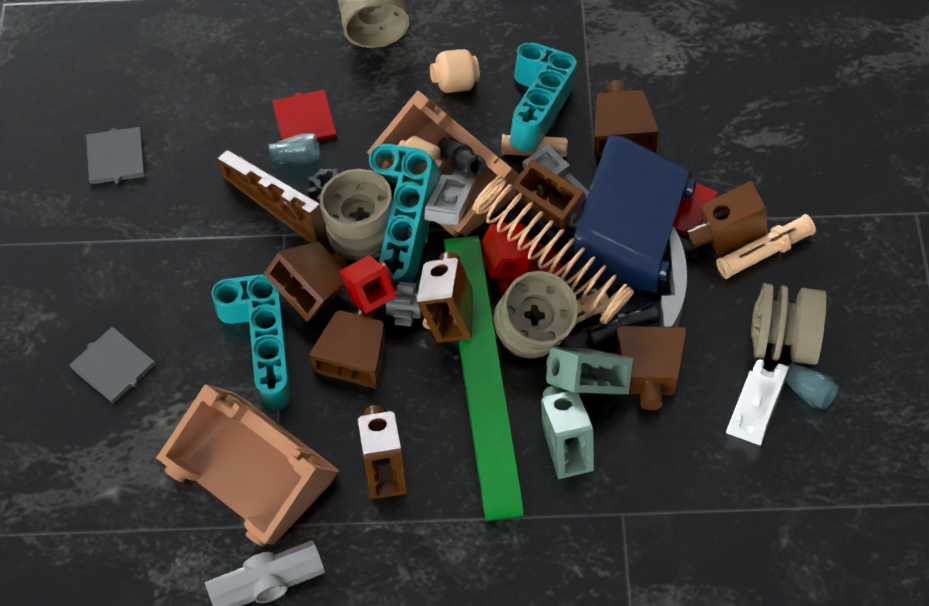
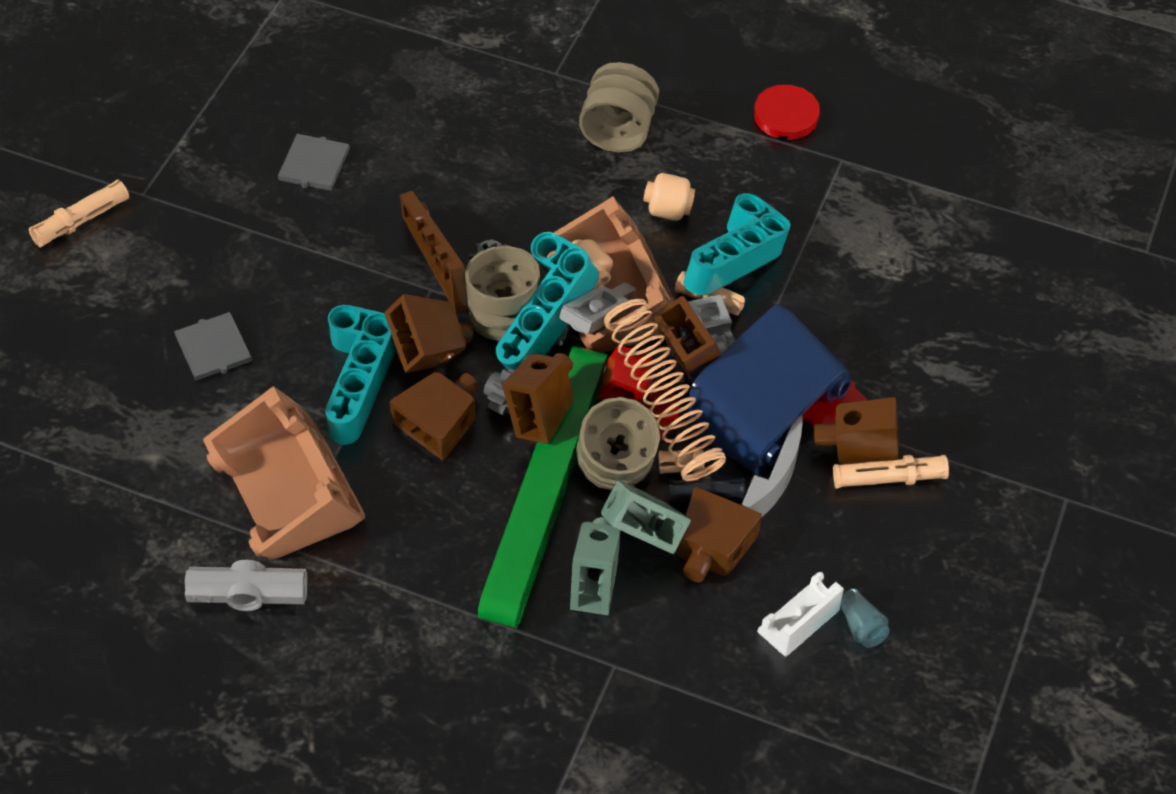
camera: 20 degrees right, 5 degrees down
(296, 150) = (480, 215): clear light blue cone -> none
(305, 113) = (505, 191): red piece -> none
(368, 283) = (477, 356): red brick -> none
(378, 442) = (415, 499): reddish brown torso -> none
(461, 157) = (628, 275): black pin -> none
(624, 115) = (812, 298): reddish brown torso -> none
(789, 324) = (860, 546): dark tan wheel -> none

